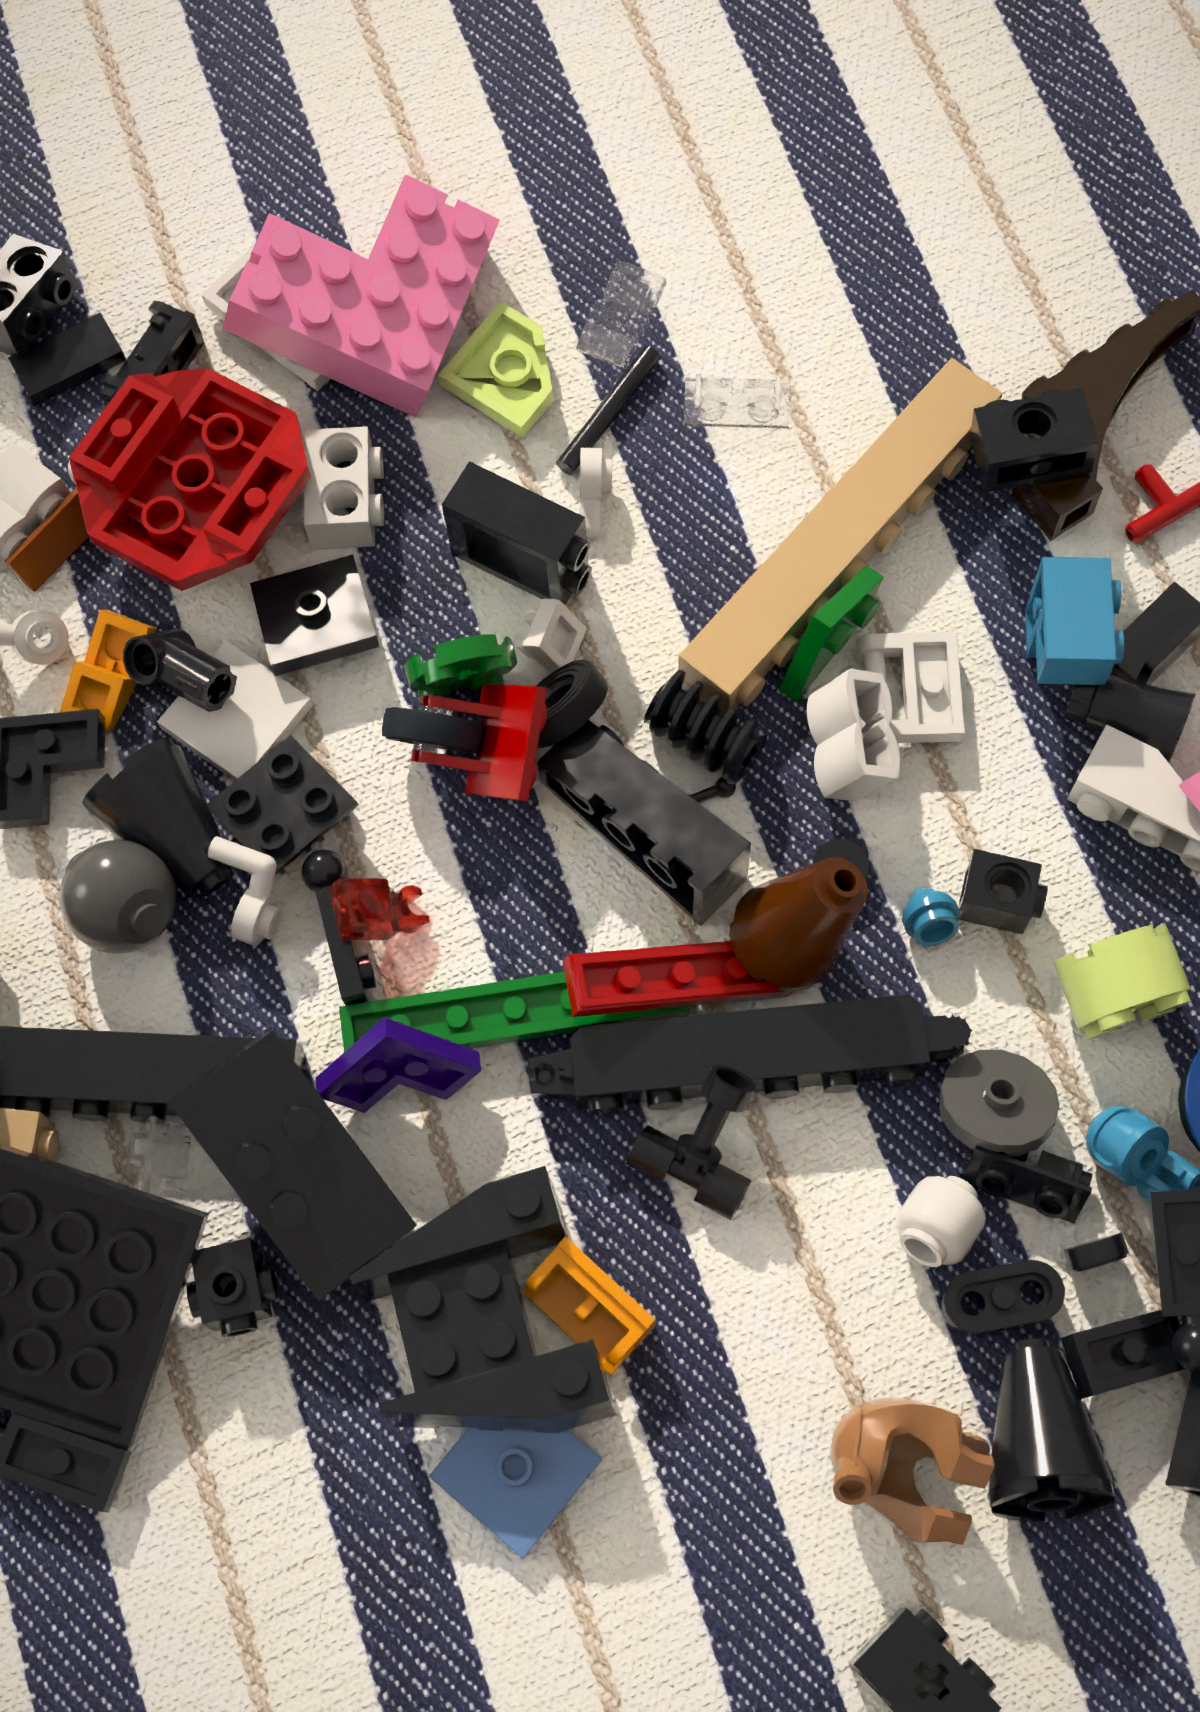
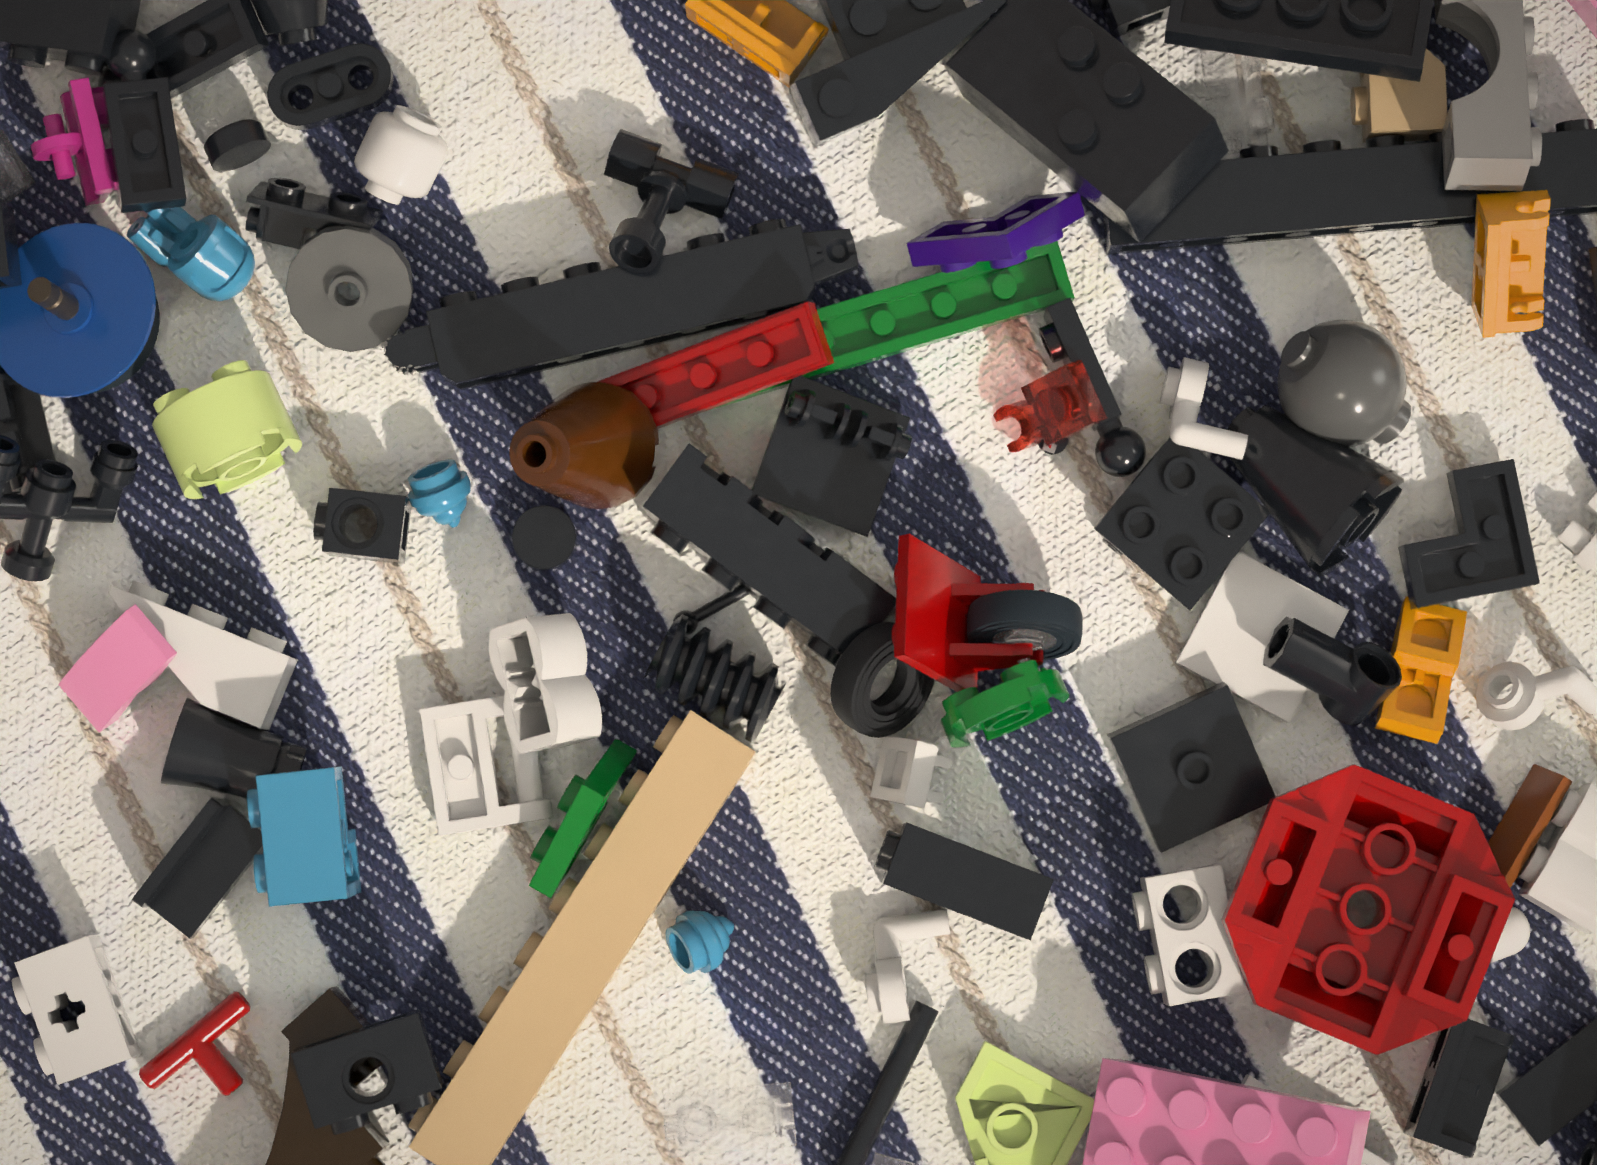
camera: 170 degrees right, 15 degrees up
(576, 900) = (831, 455): none -> black hinge
(744, 532) = (699, 940): none -> dark azure plate

